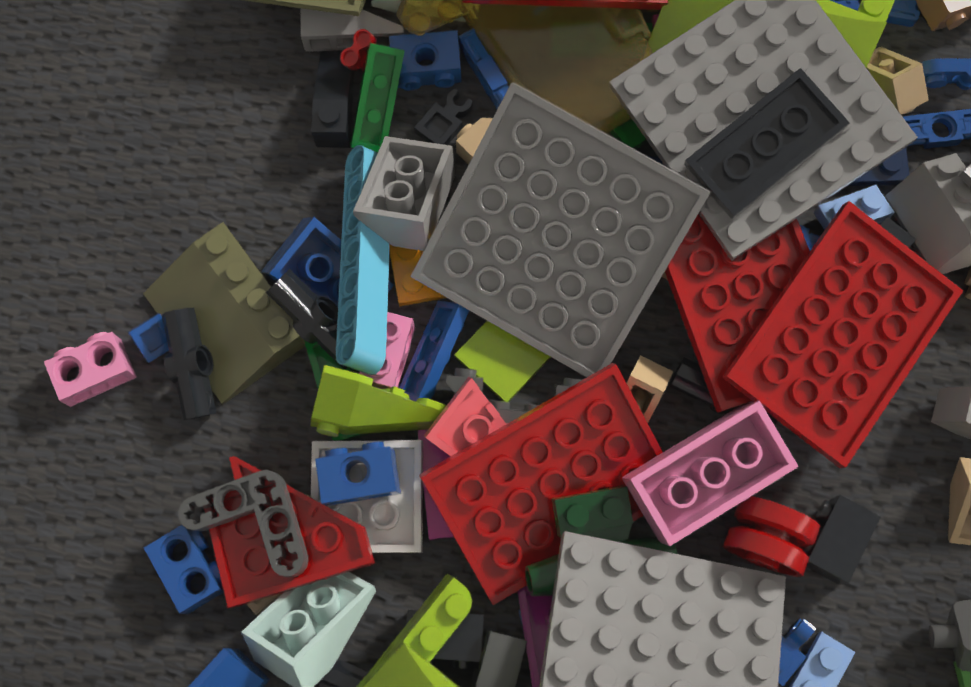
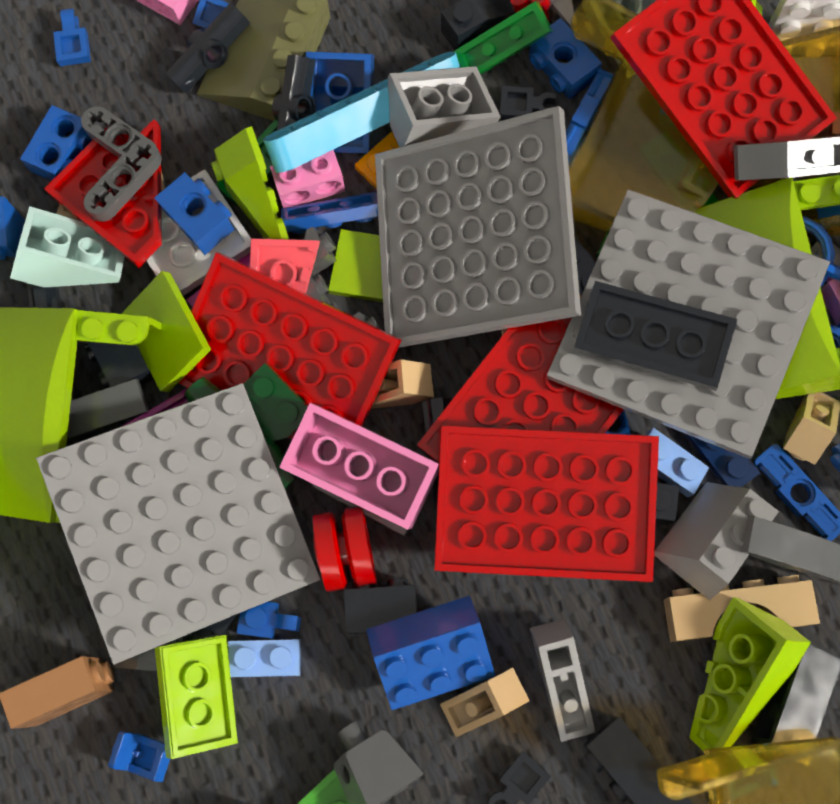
camera: 60 degrees right, 0 degrees up
(82, 492) = (72, 42): none -> blue plate
(477, 564) = (179, 343): none -> lime tile
(911, 518) = (430, 652): none -> blue brick

